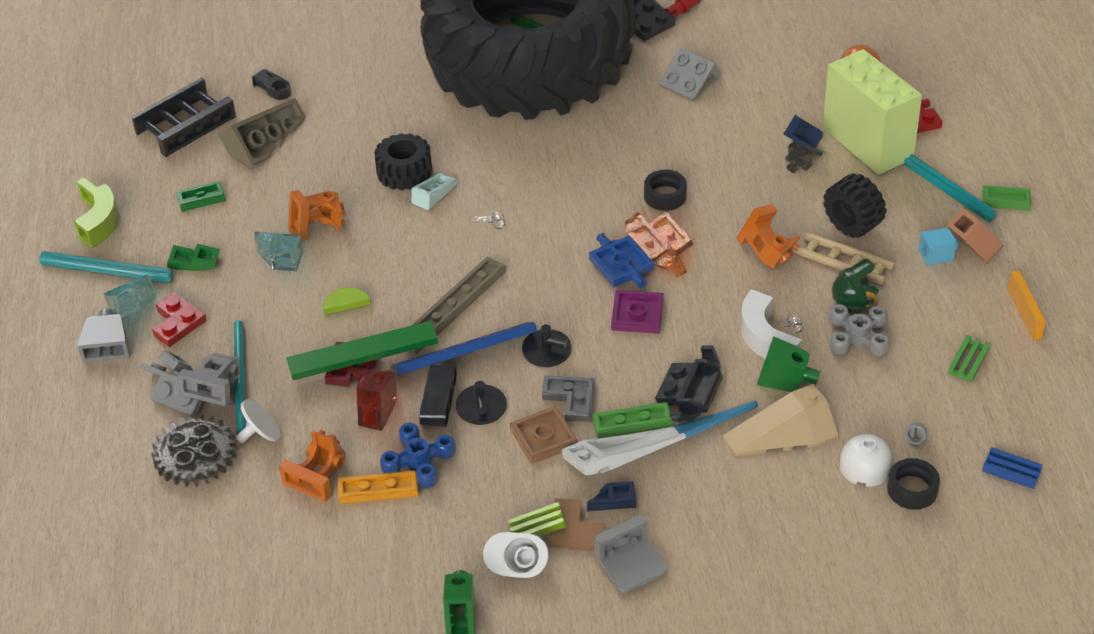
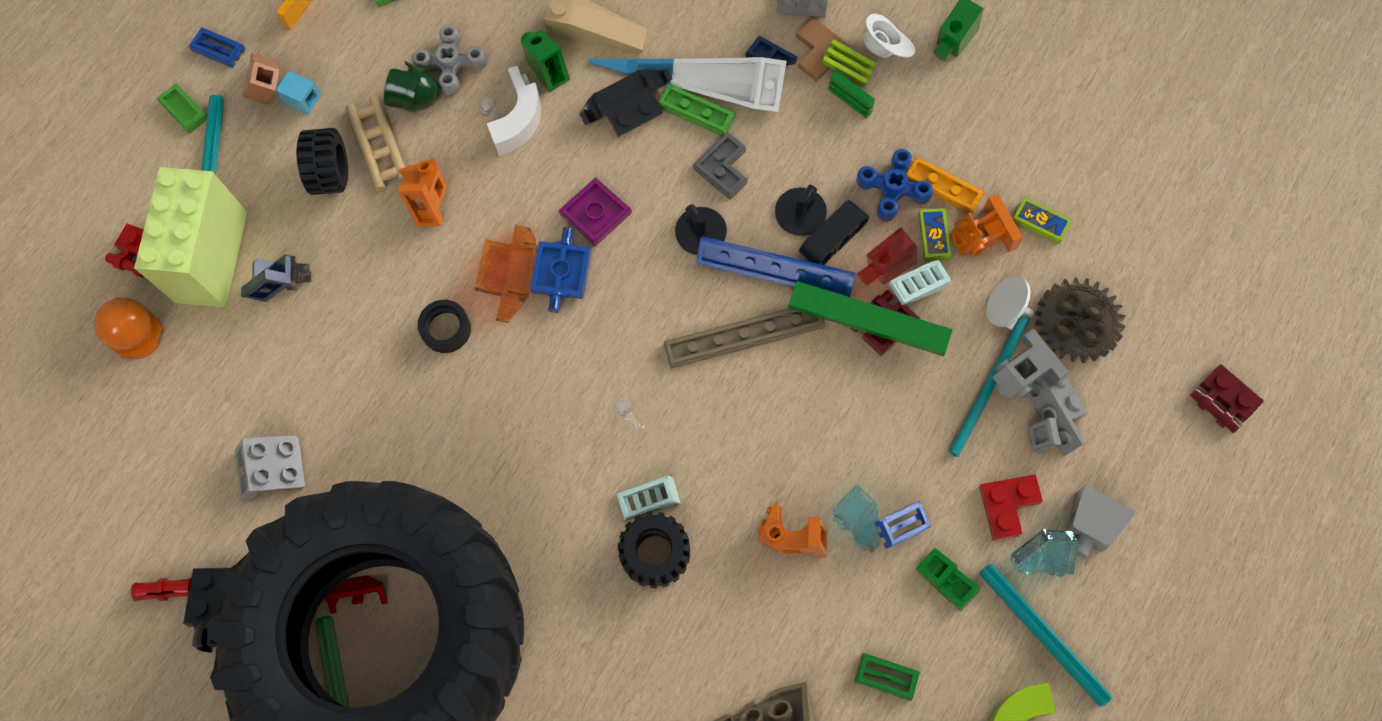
camera: 140 degrees left, 25 degrees up
(37, 477) = (1231, 394): none -> dark red plate
(248, 258) = (886, 531): none -> tile
(274, 508) = (1042, 220): none -> tile
(341, 417) = (934, 275): none -> light aqua slope
(345, 299) = (836, 411): lime tile -> none
(358, 447) = (934, 234): none -> tile
(511, 499) = (851, 94): none -> green tile
(543, 434) = (775, 144): medium nougat tile -> none
(1040, 243) = (232, 55): none -> blue tile

